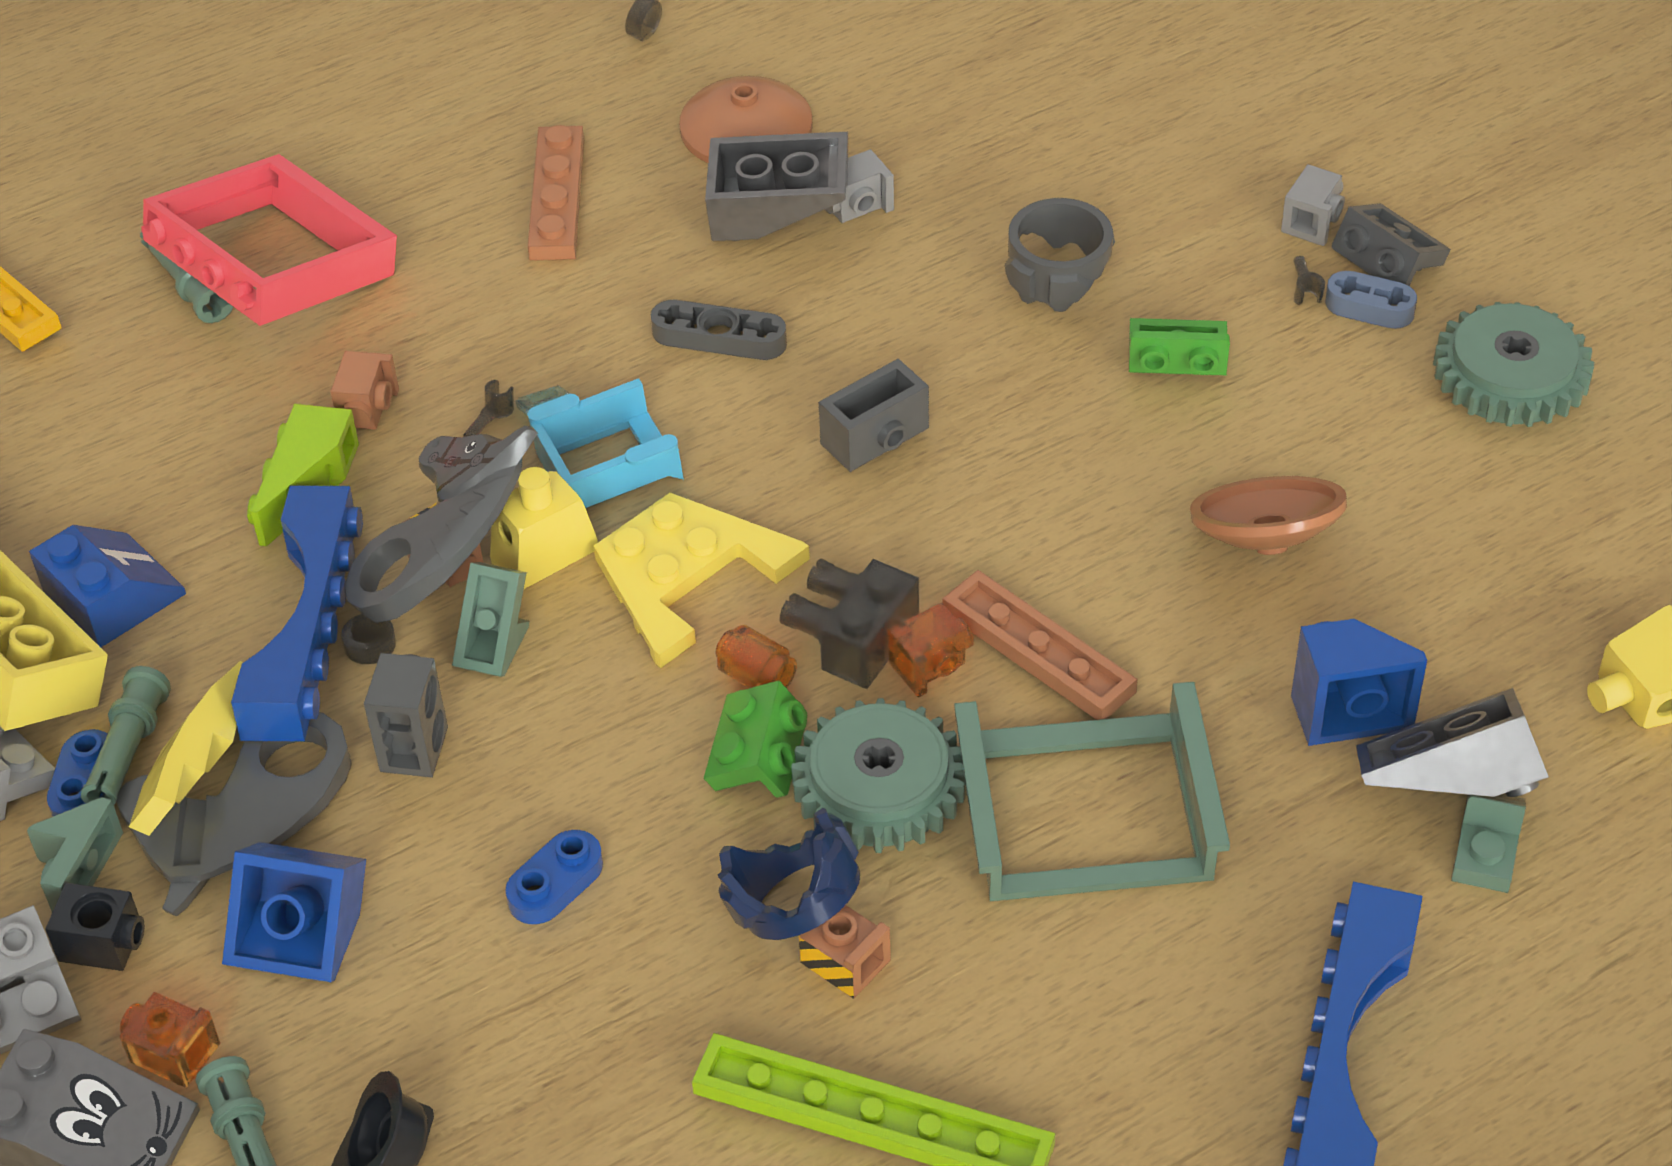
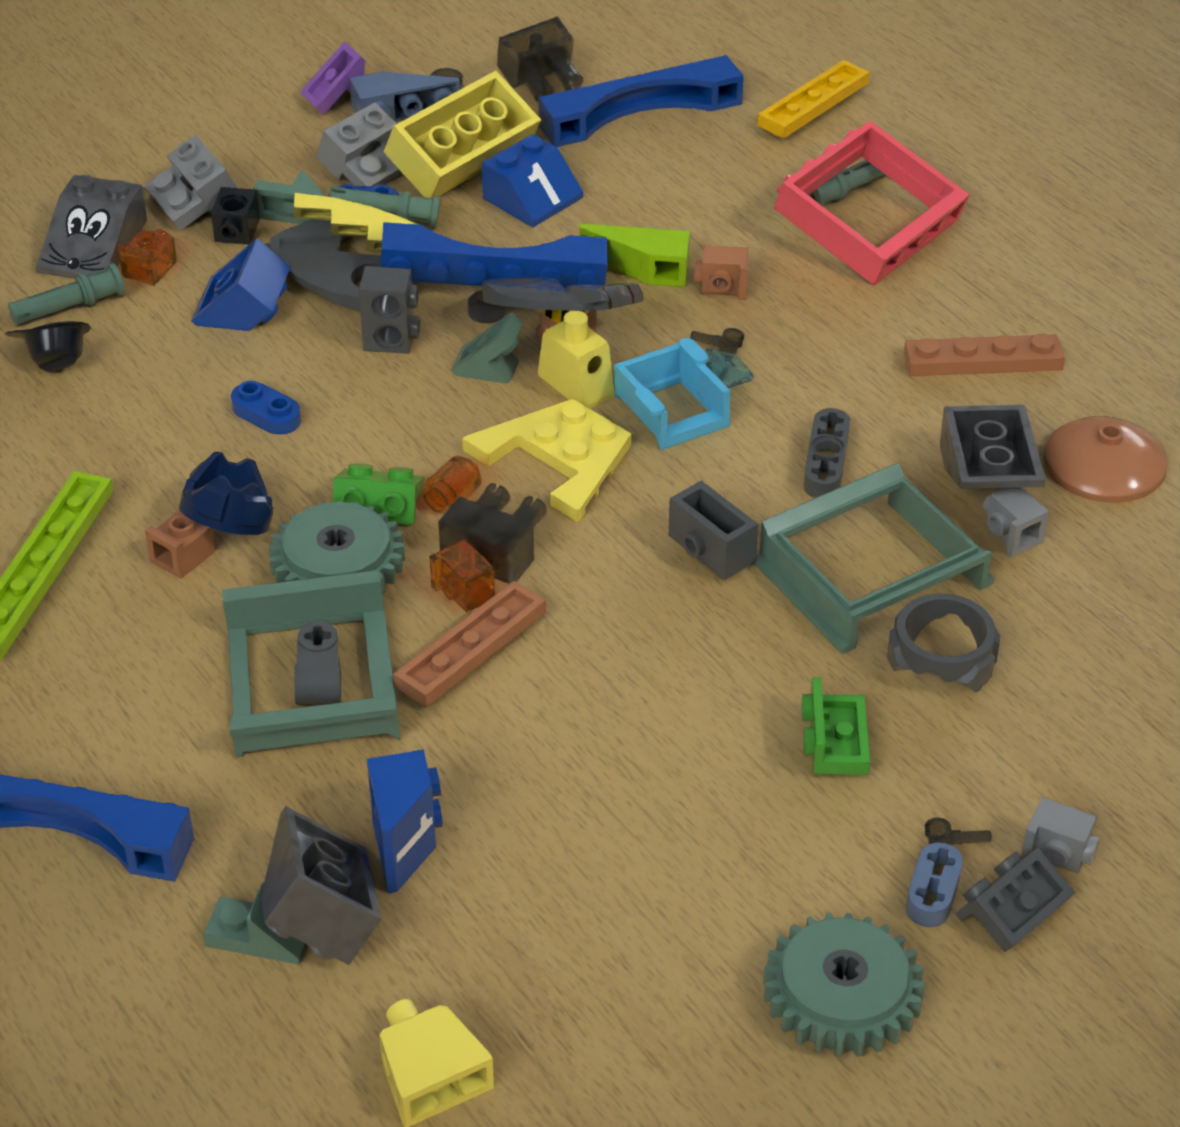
camera: 85 degrees right, 5 degrees down
(949, 354) = (819, 598): none -> sand green piece
(1091, 786) = (318, 666): none -> dark grey piece
(1269, 511) = (613, 774): nougat dish -> none

